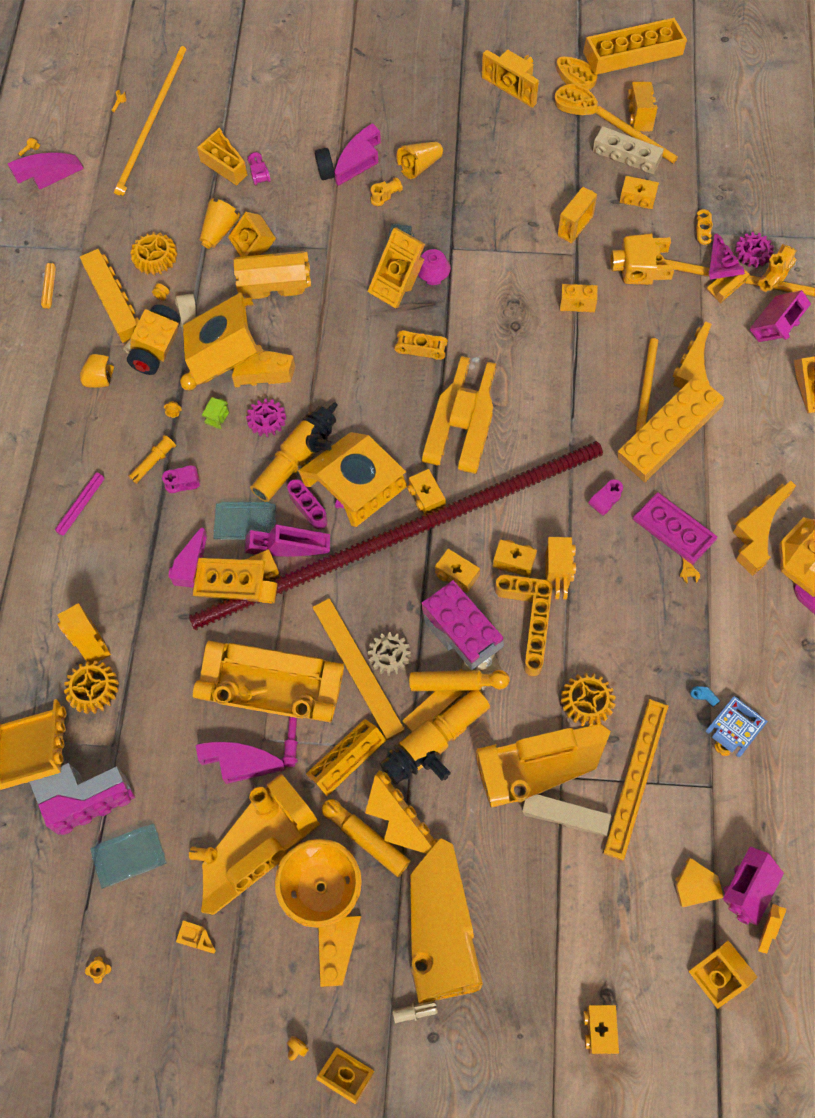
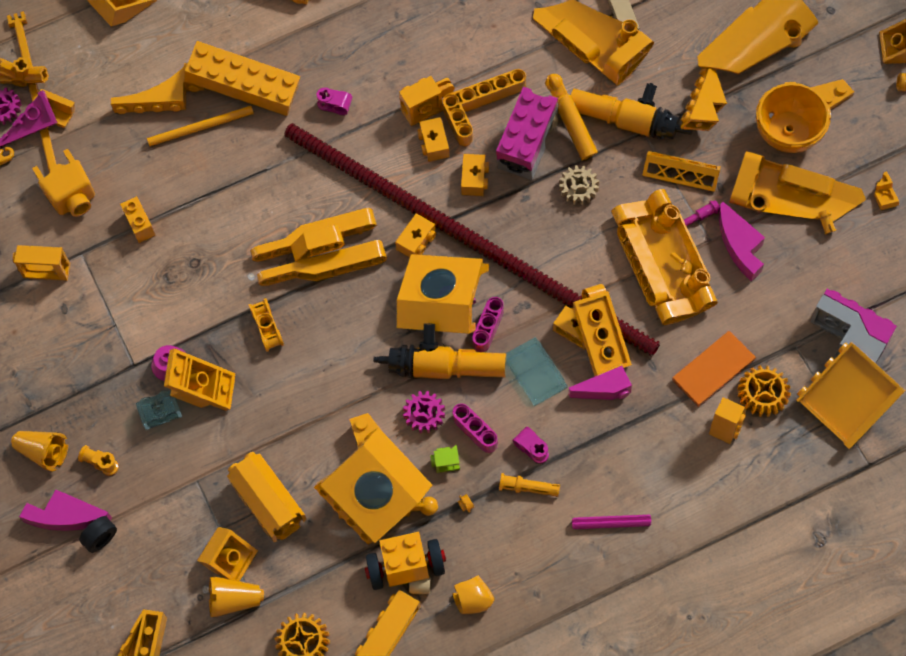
camera: 120 degrees left, 0 degrees up
(127, 855) = (866, 278): clear light blue piece -> none
(143, 662) = (713, 368): none -> orange tile
(160, 292) = (343, 602): light orange bush -> none
(185, 308) = (353, 562): tan piece -> none
(234, 449) = (479, 436): none -> dark pink beam
(258, 169) = (137, 603): dark pink connector -> none
(287, 542) = (536, 317): dark pink slope -> none
(358, 669) = (604, 204): light orange tile -> none
(366, 837) = (732, 120): light orange piece -> none
(414, 1011) = (825, 27): tan axle -> none
(432, 706) = (601, 134): light orange tile -> none
(602, 692) = (519, 24): light orange gear -> none
(675, 528) = (330, 42): dark pink tile -> none
(689, 571) = (362, 18): light orange piece -> none
(780, 316) = (73, 49): dark pink piece -> none

